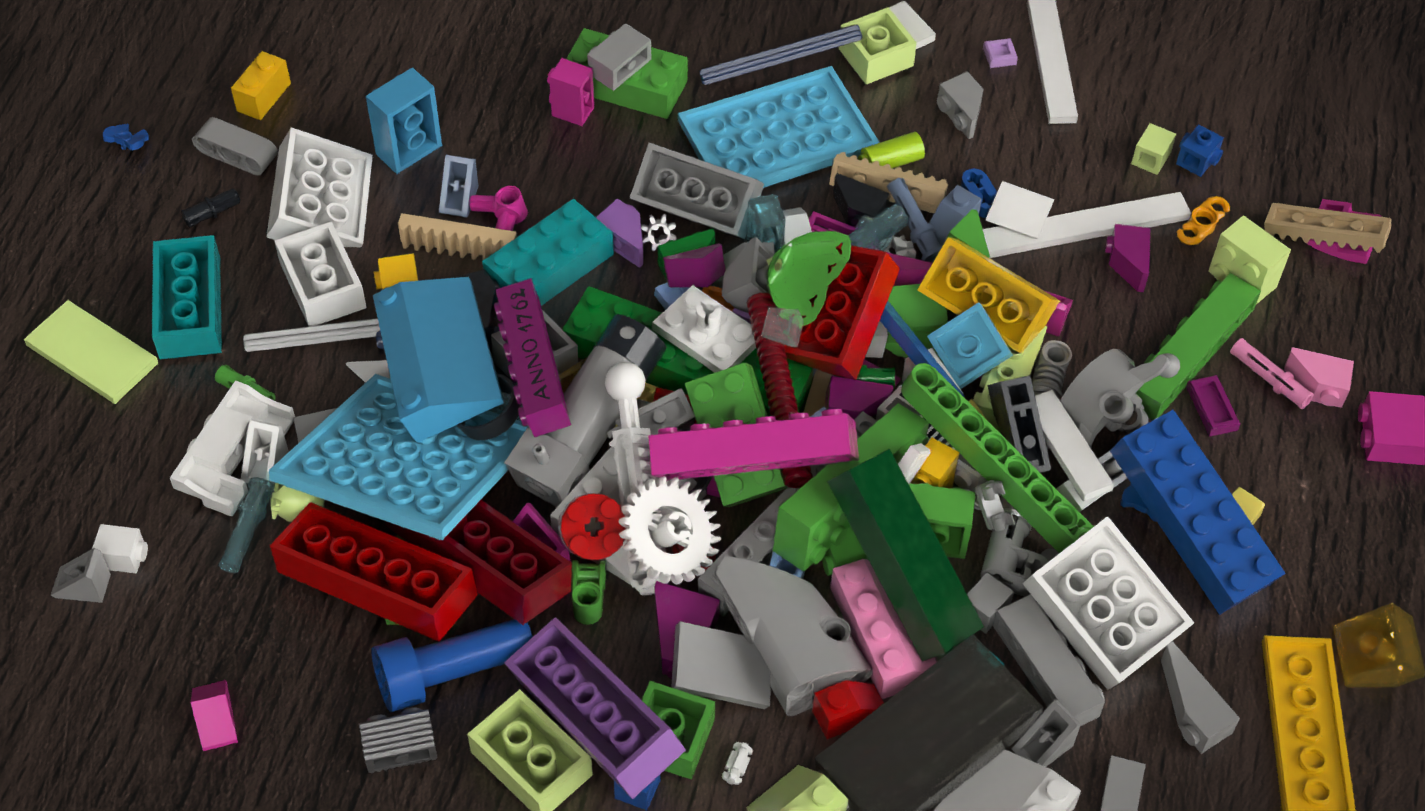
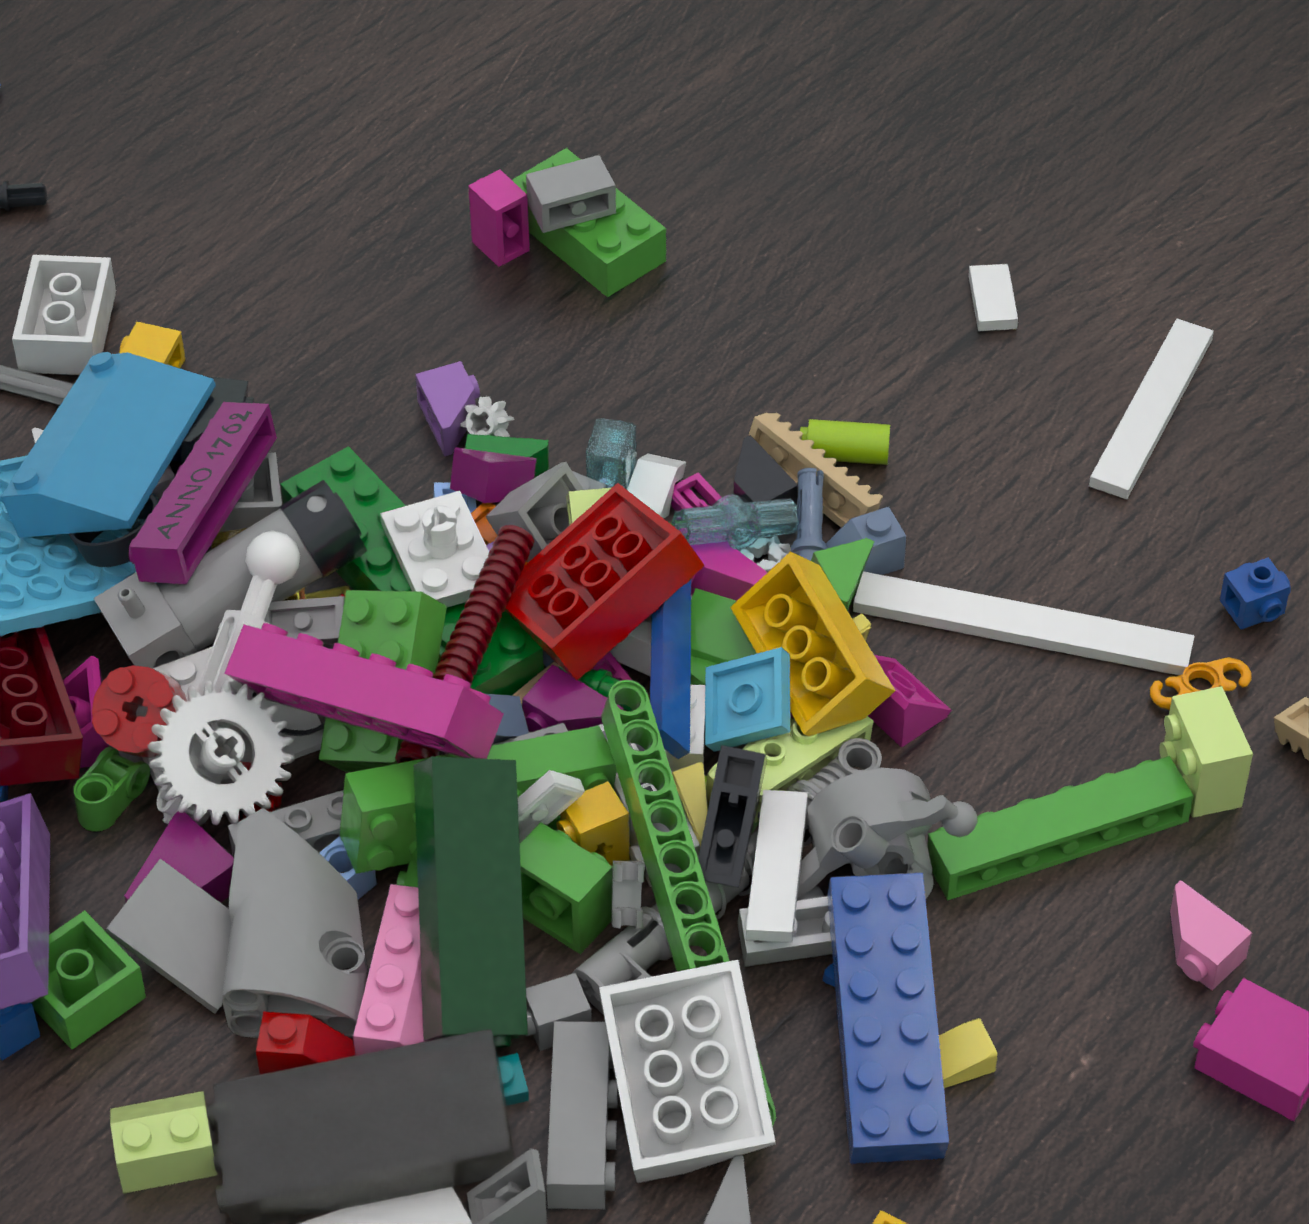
camera: 30 degrees right, 5 degrees down
(235, 146) = (80, 137): light grey beam -> none
(261, 85) = (155, 79): yellow brick -> none
(318, 185) = (140, 216): white slope -> none
(404, 120) = (272, 175): dark azure brick -> none
(452, 236) = (251, 337): tan gear -> none
(458, 185) = (295, 278): sand blue slope -> none
(506, 204) = (333, 324): dark pink axle -> none
(553, 251) = (340, 398): teal brick -> none
(695, 190) = (555, 383): light grey brick -> none
(737, 763) = (134, 1055): white piece -> none
(780, 128) = (723, 361): medium azure plate -> none
(781, 54) = (789, 268): axle -> none
(783, 326) = (512, 575): clear slope -> none
(806, 271) = (580, 525): bright green piece -> none
(883, 48) = (922, 303): yellowish green brick -> none
(961, 102) = (987, 414): light grey slope -> none
(984, 191) = (928, 534): blue beam -> none
(1000, 53) = (1089, 375): lavender tile -> none
(1019, 209) = (959, 572): white sticker -> none
(1130, 254) = (1065, 682): magenta slope -> none
(1153, 148) = (1197, 568): yellowish green brick -> none
(1213, 405) = (1035, 912): magenta tile -> none
(1298, 395) = (1146, 920): bright pink pin -> none

